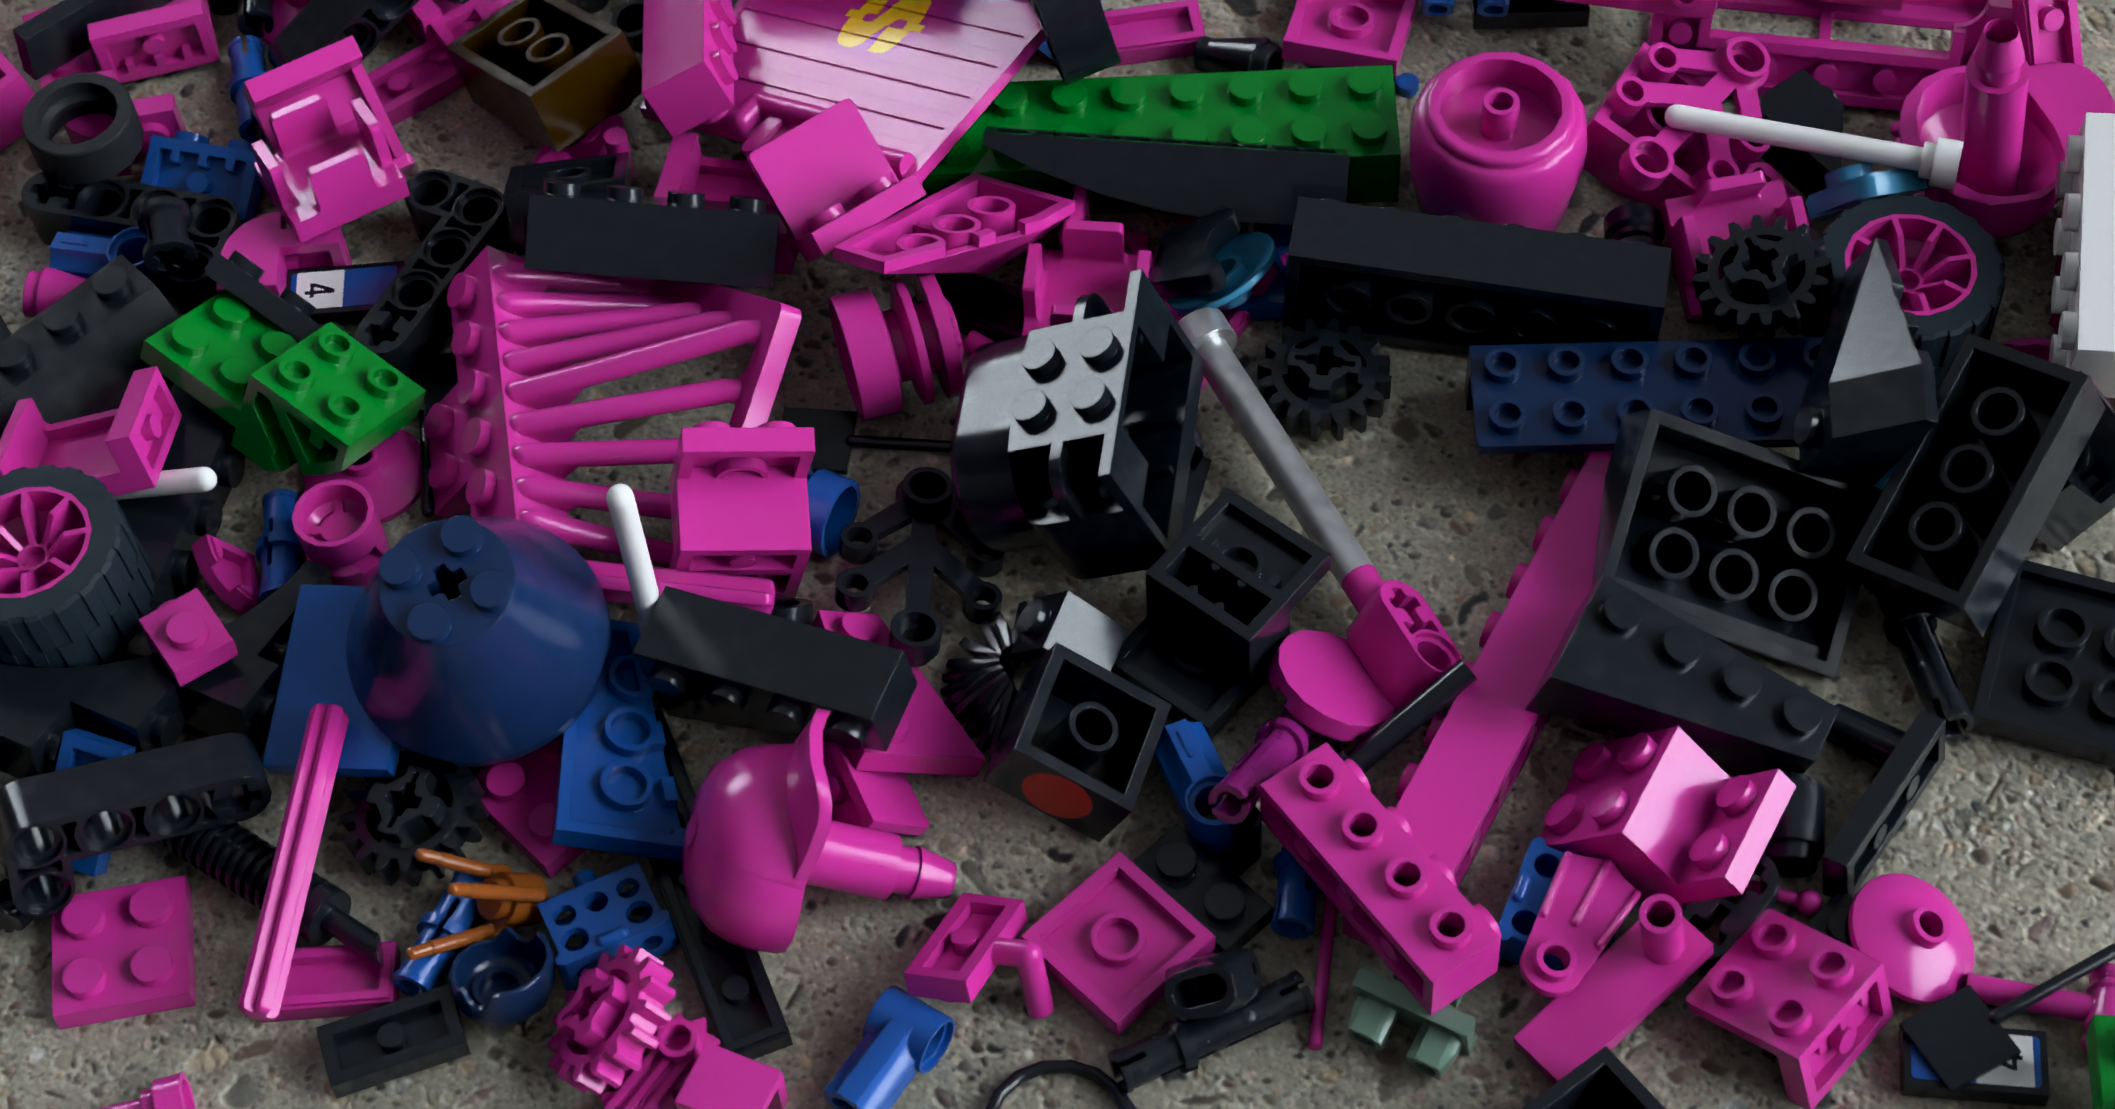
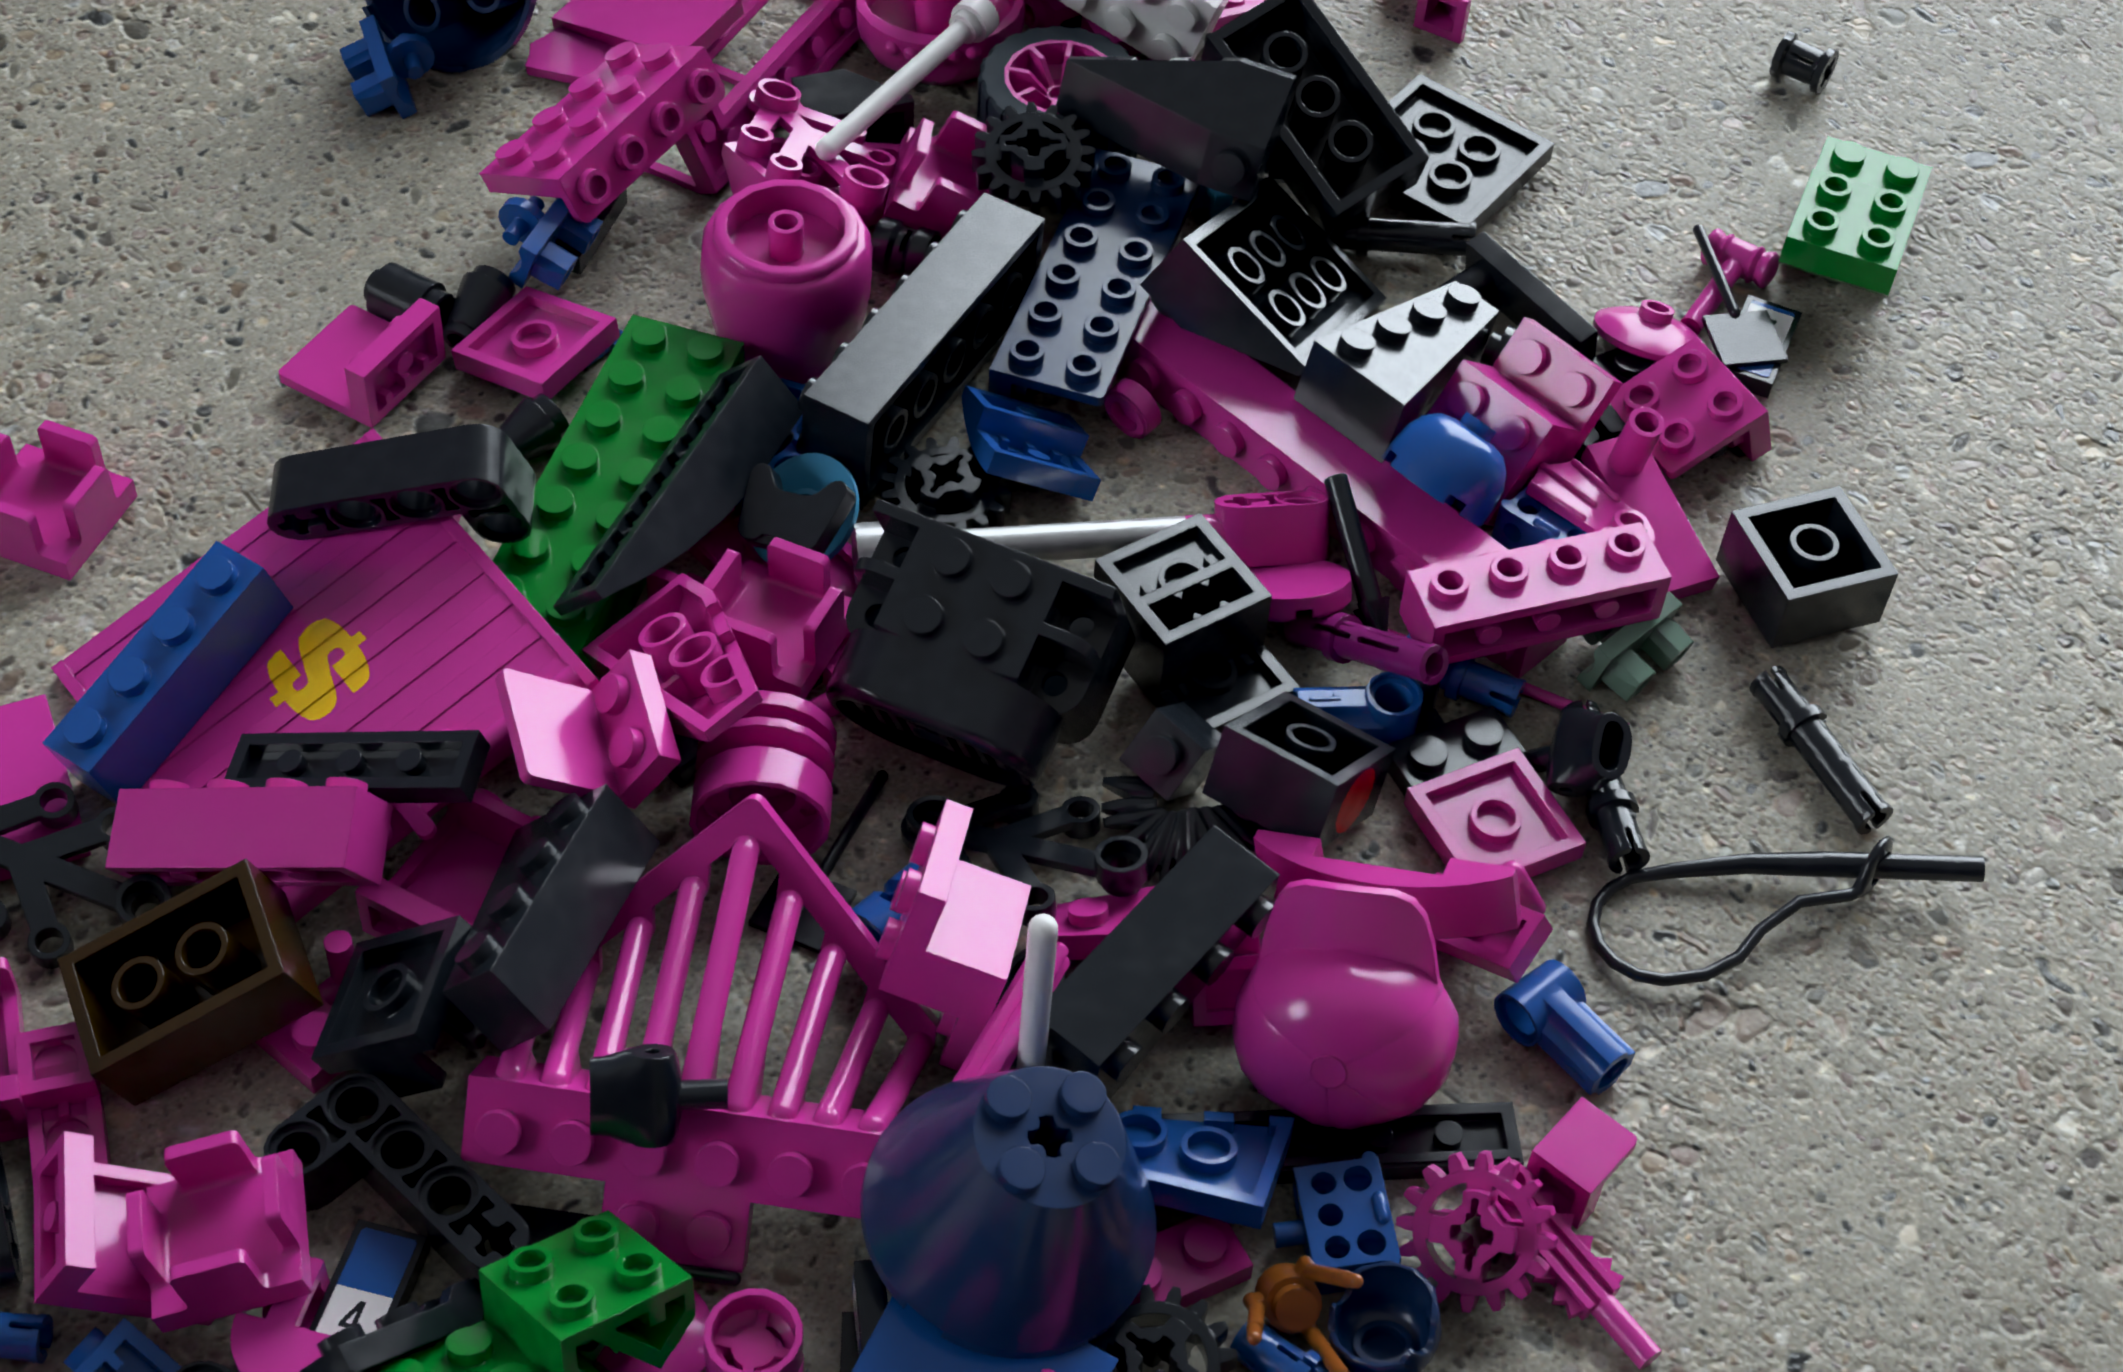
camera: 80 degrees left, 5 degrees down
(480, 346) = (642, 1095): none -> black piece
(768, 72) = (392, 763): none -> black plate
(940, 885) = (1460, 903): none -> dark pink slope
(1410, 417) = (1028, 443): none -> blue slope
(1520, 492) = (1132, 409): none -> dark pink tile
(1522, 761) = (1452, 462): none -> blue cylinder
(1858, 183) = (947, 87): dark azure piece -> none

